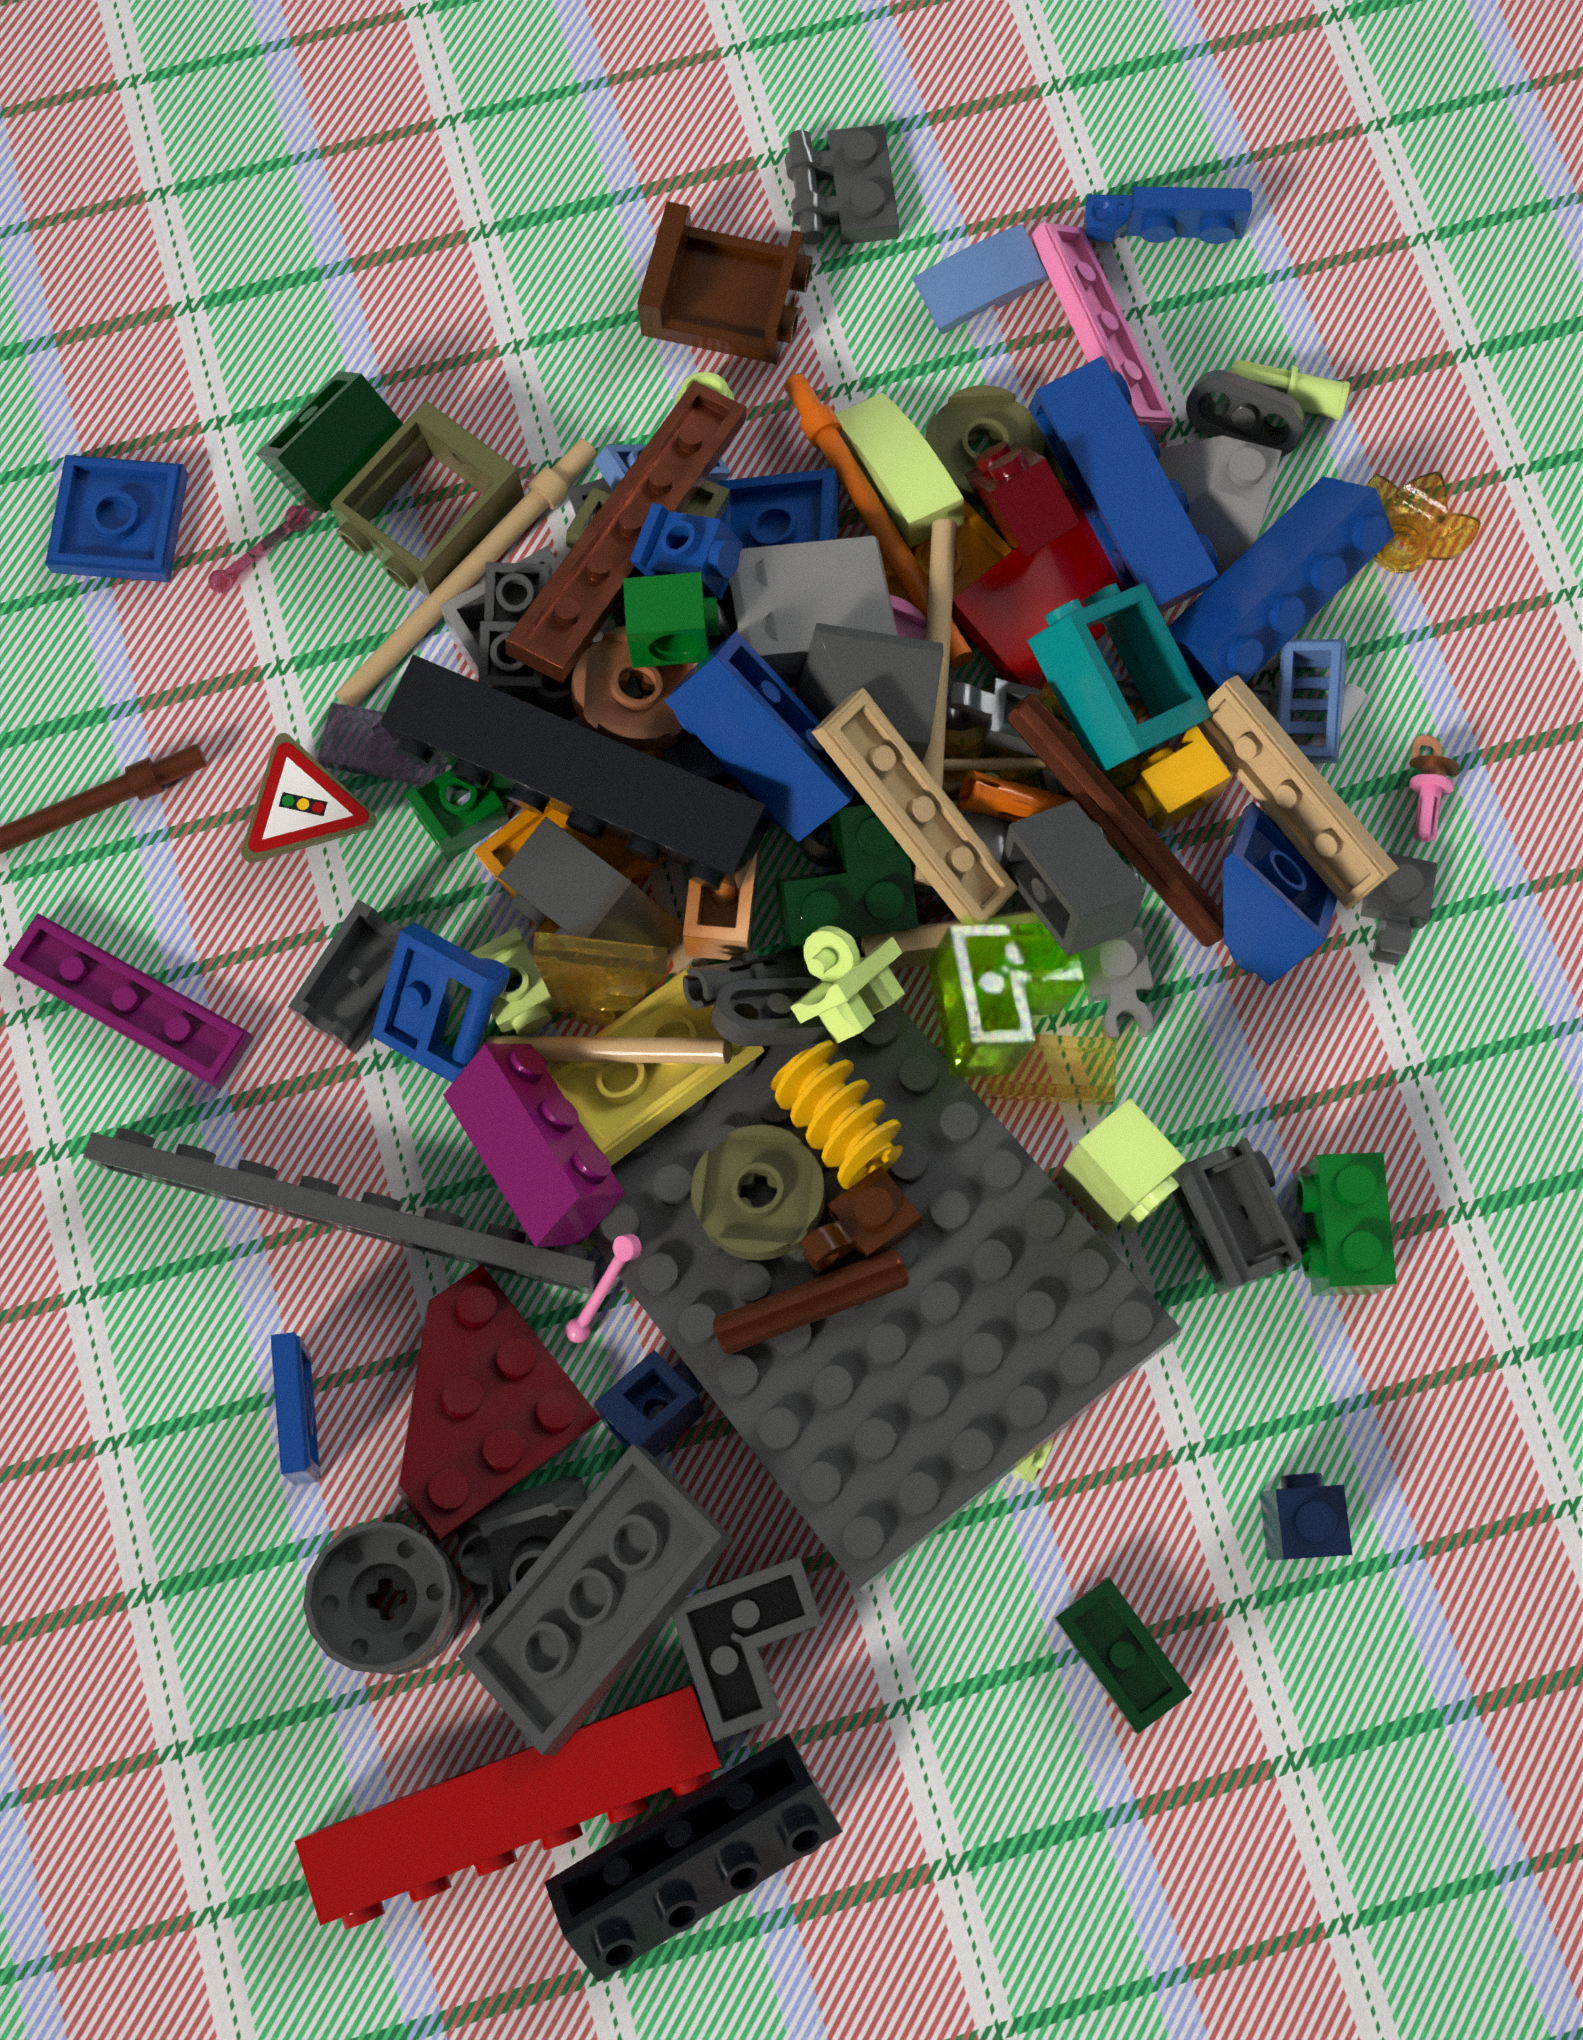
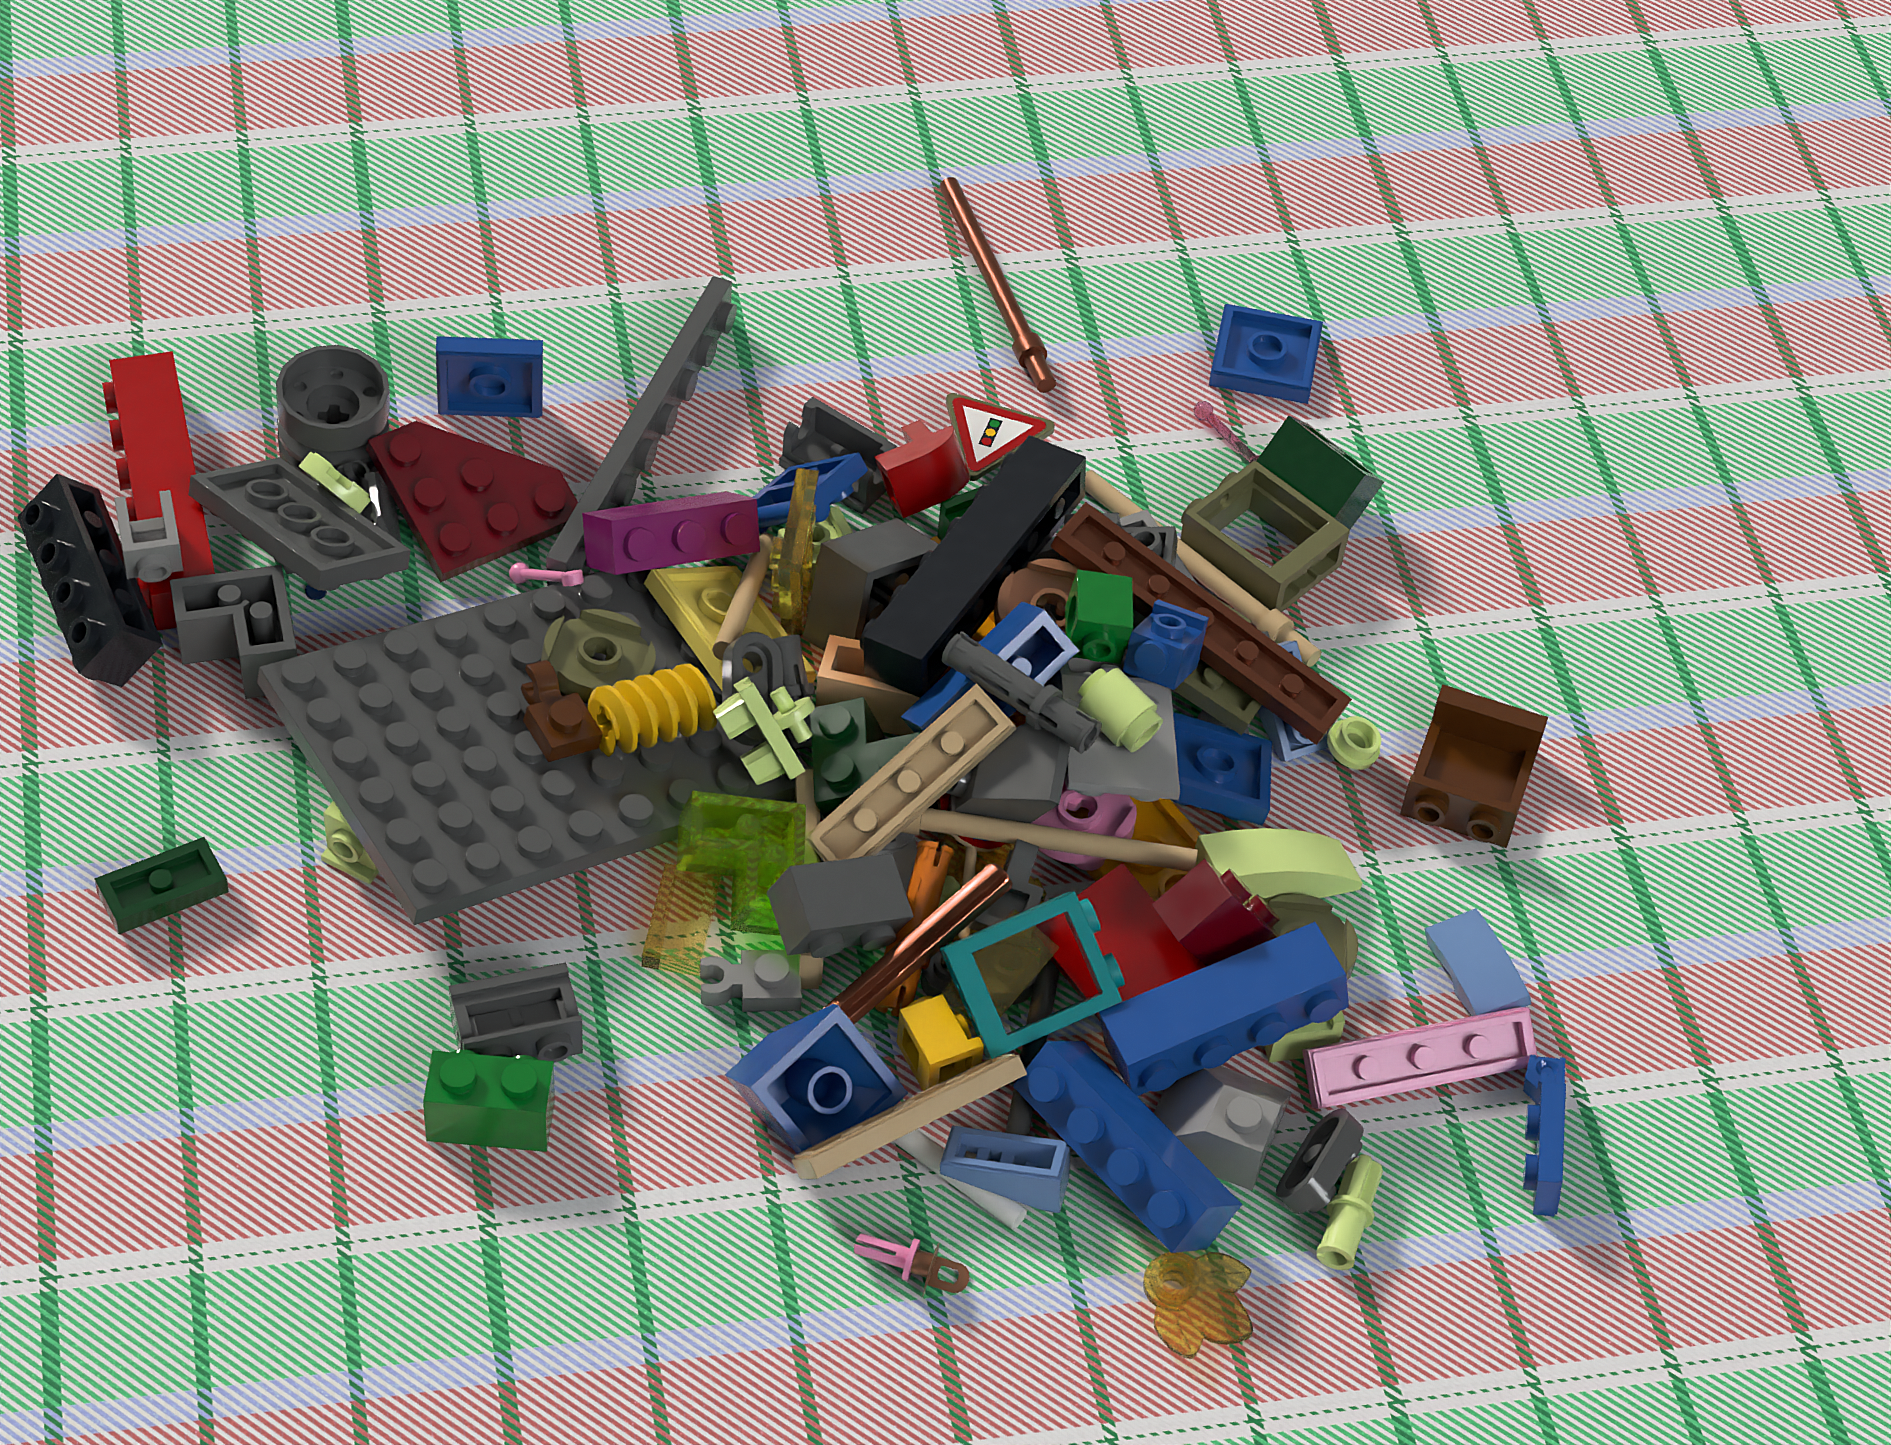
camera: 90 degrees right, 25 degrees down
(128, 1001) = (842, 331): magenta tile -> none
(396, 862) = (923, 469): none -> red brick
(517, 1566) = (334, 482): none -> yellowish green tile
(651, 1384) = (438, 588): dark blue brick -> none
(659, 1783) = (150, 545): none -> light grey window
(808, 585) = (1121, 707): none -> yellowish green brick
(810, 1301) = (498, 672): copper axle -> none
(824, 432) = (1317, 817): orange bar -> none
(841, 657) = (1040, 704): none -> dark grey pin
(861, 184) = (1586, 895): dark grey plate -> none
(1121, 1169) = (566, 895): yellowish green brick -> none
(1305, 1519) = (235, 1023): dark blue brick -> none
(1400, 904) = (801, 1217): dark grey plate -> none

